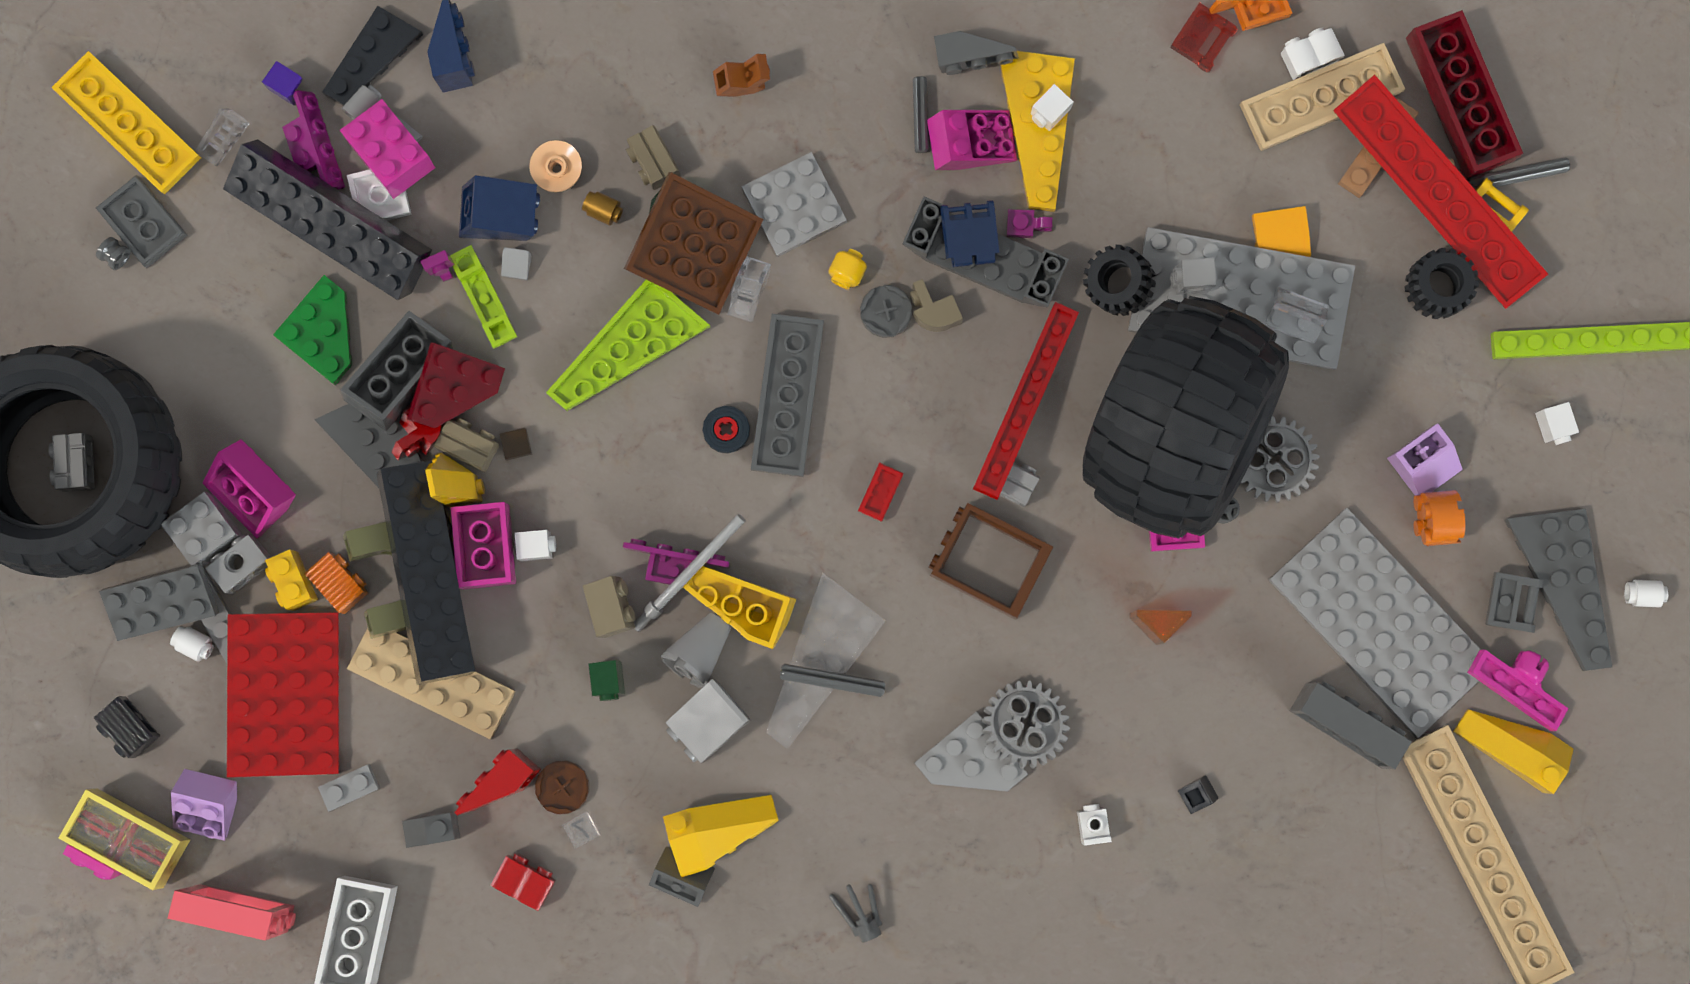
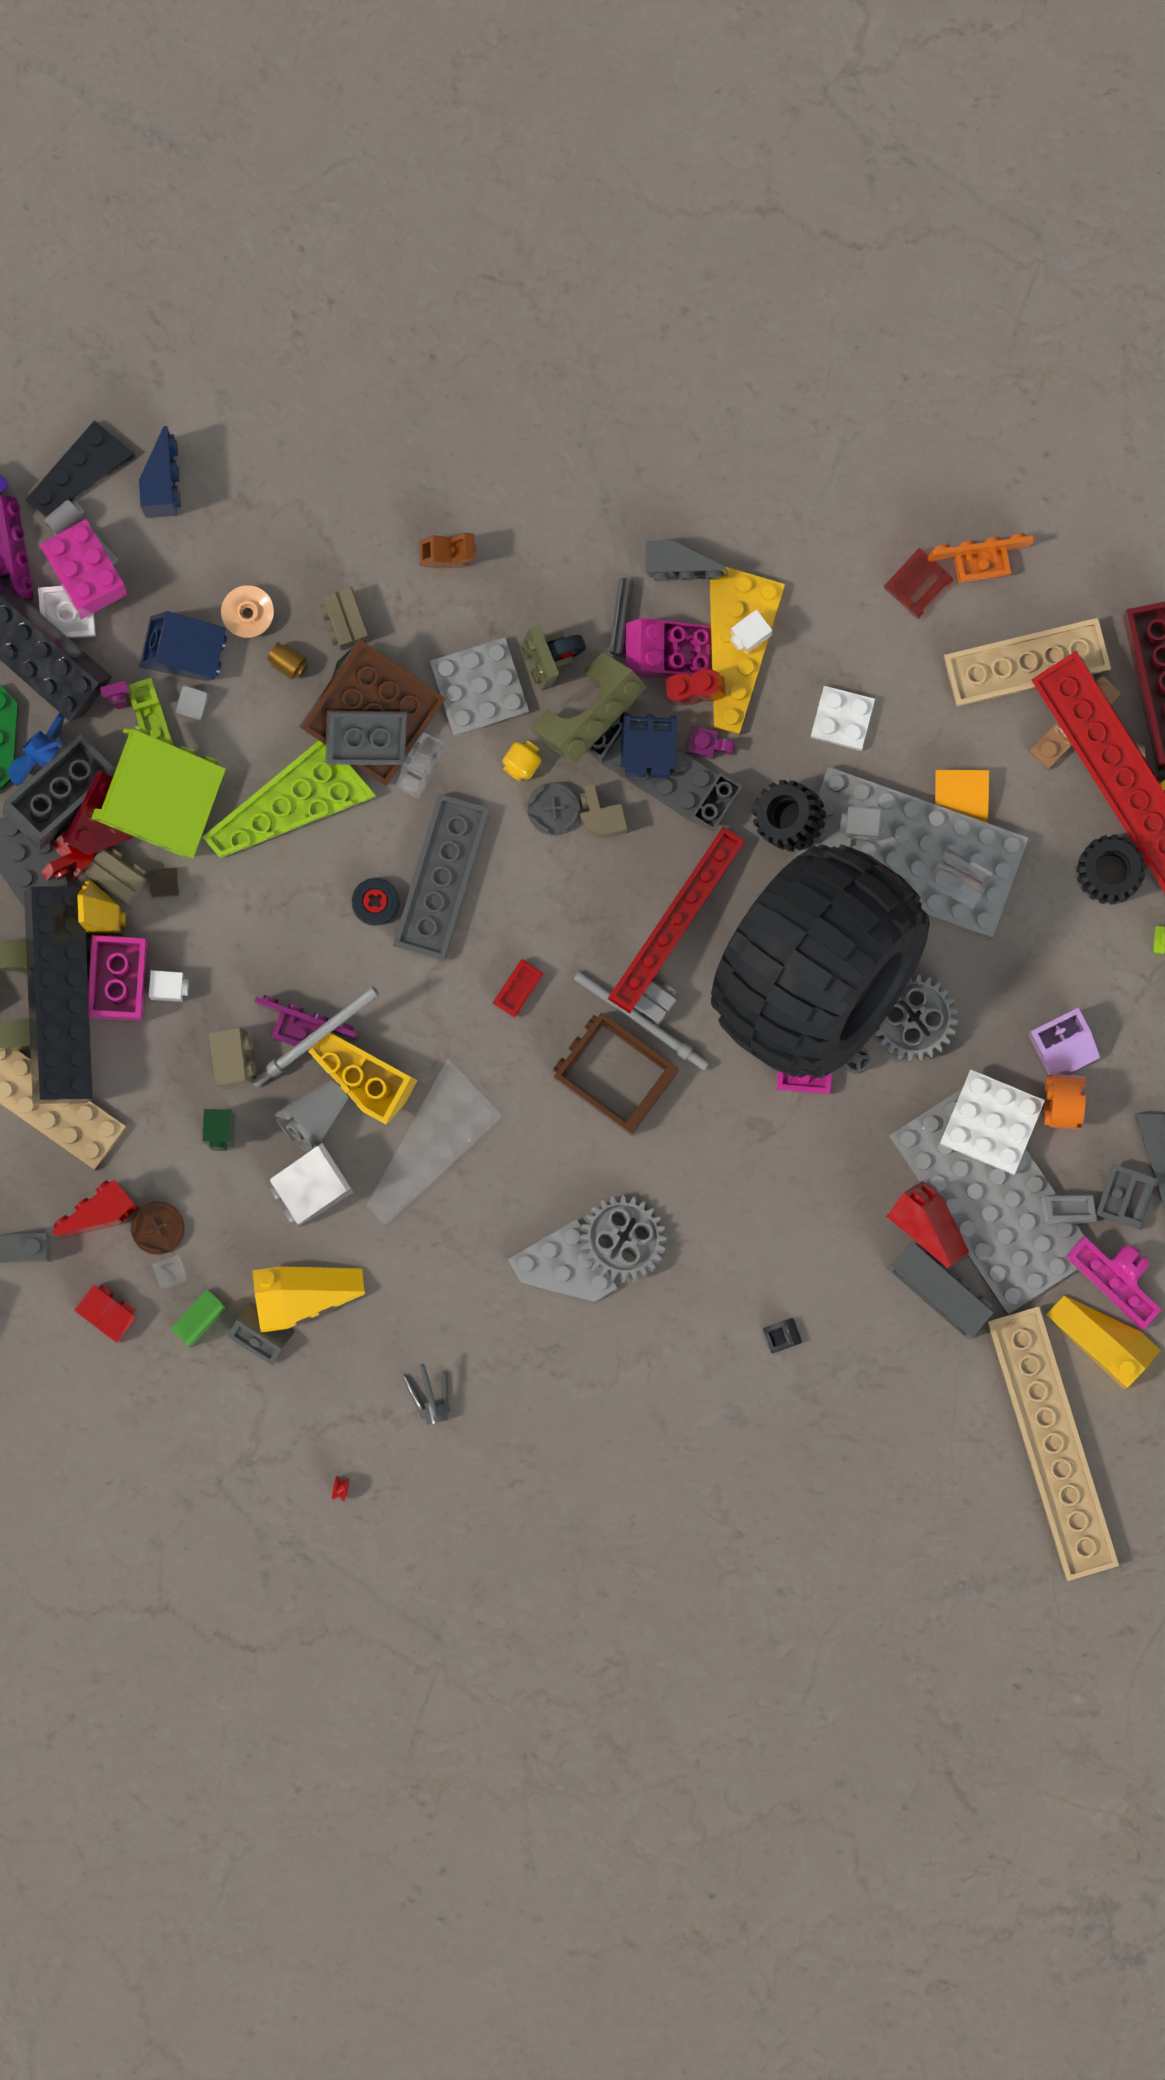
camera: 10 degrees right, 0 degrees up
(369, 332) = (38, 750): none -> blue piece
(496, 355) = (161, 793): none -> lime panel
(617, 871) = (198, 1318): none -> bright green panel
(691, 269) = (365, 737): none -> dark grey tile
(832, 680) = (439, 1165): dark grey axle -> none
(858, 160) = (549, 654): none -> olive plate
(895, 236) = (575, 735): none -> olive arch
(1012, 167) = (702, 685): none -> red brick
(1054, 527) = (684, 1050): none -> light grey bar
(1087, 834) = (671, 1358): white brick -> none
(1152, 179) = (842, 718): none -> white plate
(1159, 624) = (771, 1160): clear orange slope -> none
(1312, 52) = (1024, 616): white brick -> none
(1327, 660) = (929, 1222): none -> red slope
(1370, 550) = (992, 1122): none -> white plate
(1460, 624) = (1068, 1209): none -> light grey tile

